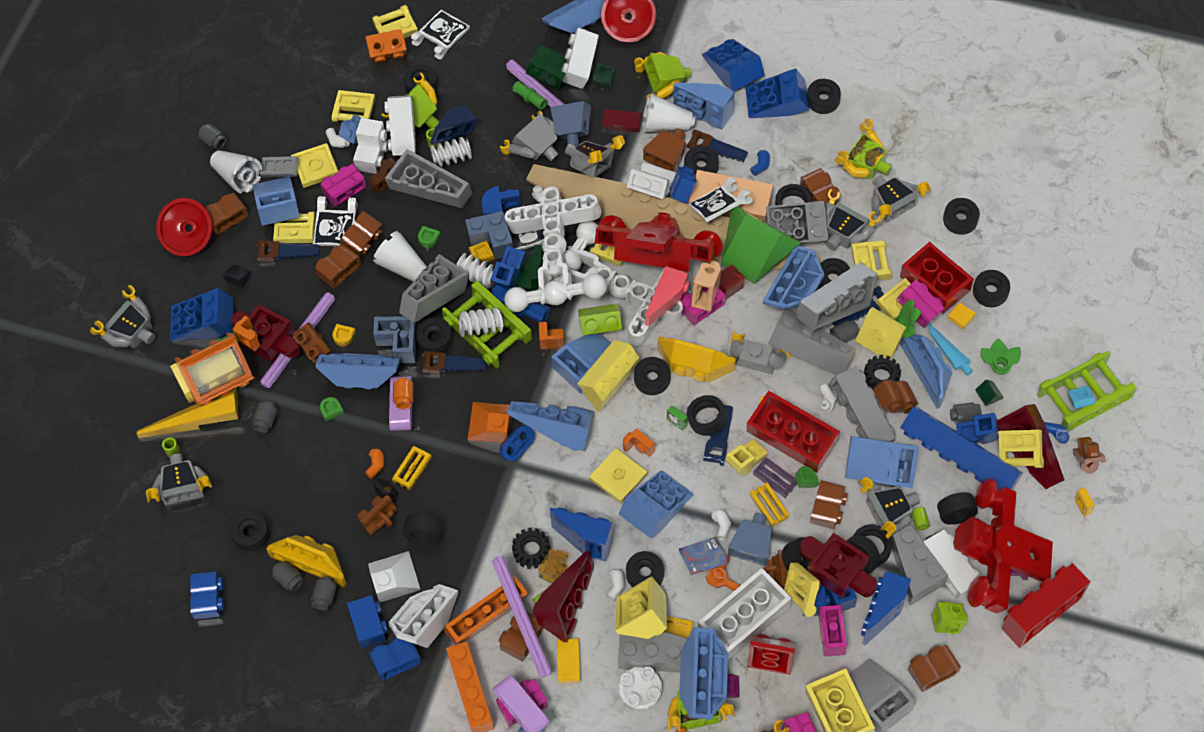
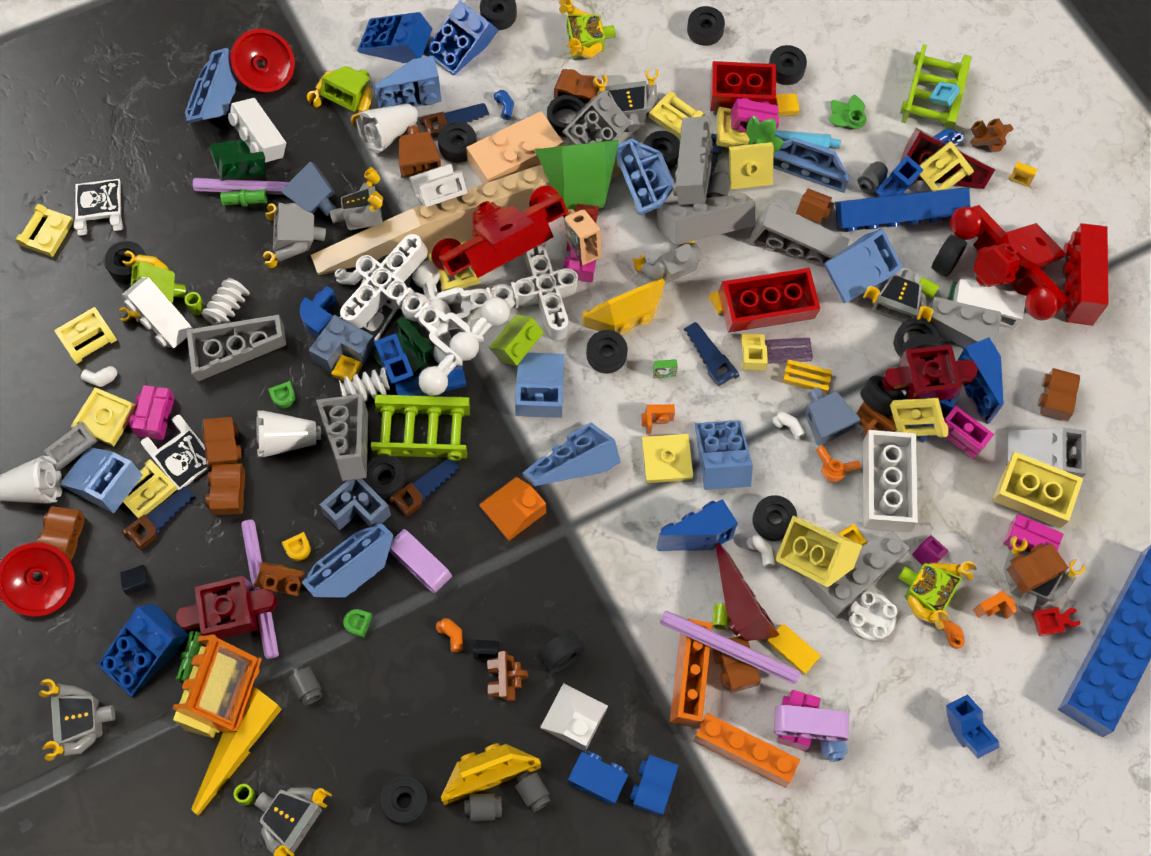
camera: 50 degrees left, 5 degrees up
(245, 334) = (220, 626): orange bracket -> none
(349, 128) = (110, 353): medium blue brick -> none
(371, 145) = (143, 355): white brick -> none
(378, 180) = (184, 380): reddish brown piece -> none
(386, 46) = (59, 254): orange brick -> none
(403, 393) = (420, 549): orange brick -> none
(403, 482) = (493, 628): yellow tile -> none
(424, 615) = (643, 727): white wedge -> none
(456, 123) = (205, 273): dark blue slope -> none
(480, 320) = (422, 427): white piece -> none
(515, 444) = (557, 506): blue plate -> none
(530, 536) = (674, 573): black tyre -> none
(550, 338) = (487, 391): orange panel -> none
(553, 565) = (701, 582): clear yellow brick -> none
(604, 74) = (292, 129): clear green plate -> none
(608, 373) = (578, 377): light yellow slope -> none
(621, 120) = (349, 158): dark red tile -> none
(667, 294) = (553, 264): coral slope -> none
(683, 184) = (471, 165): blue brick -> none
(703, 402) = (683, 329): black tyre -> none
(703, 555) = (805, 463): sticker -> none
(703, 673) = (924, 559): medium blue wedge -> none
(720, 200) = (520, 158): white flag -> none
(771, 654) = (945, 490): red slope -> none
(806, 477) = (812, 329): bright green tile -> none
(827, 505) = (852, 336): dark orange brick -> none
(829, 398) = (762, 253): white arm -> none
(883, 364) = (782, 188): black tyre -> none
(895, 196) = (642, 47): torso -> none
(949, 617) = (1031, 345): lime brick -> none
(988, 392) = (869, 149): dark green slope -> none

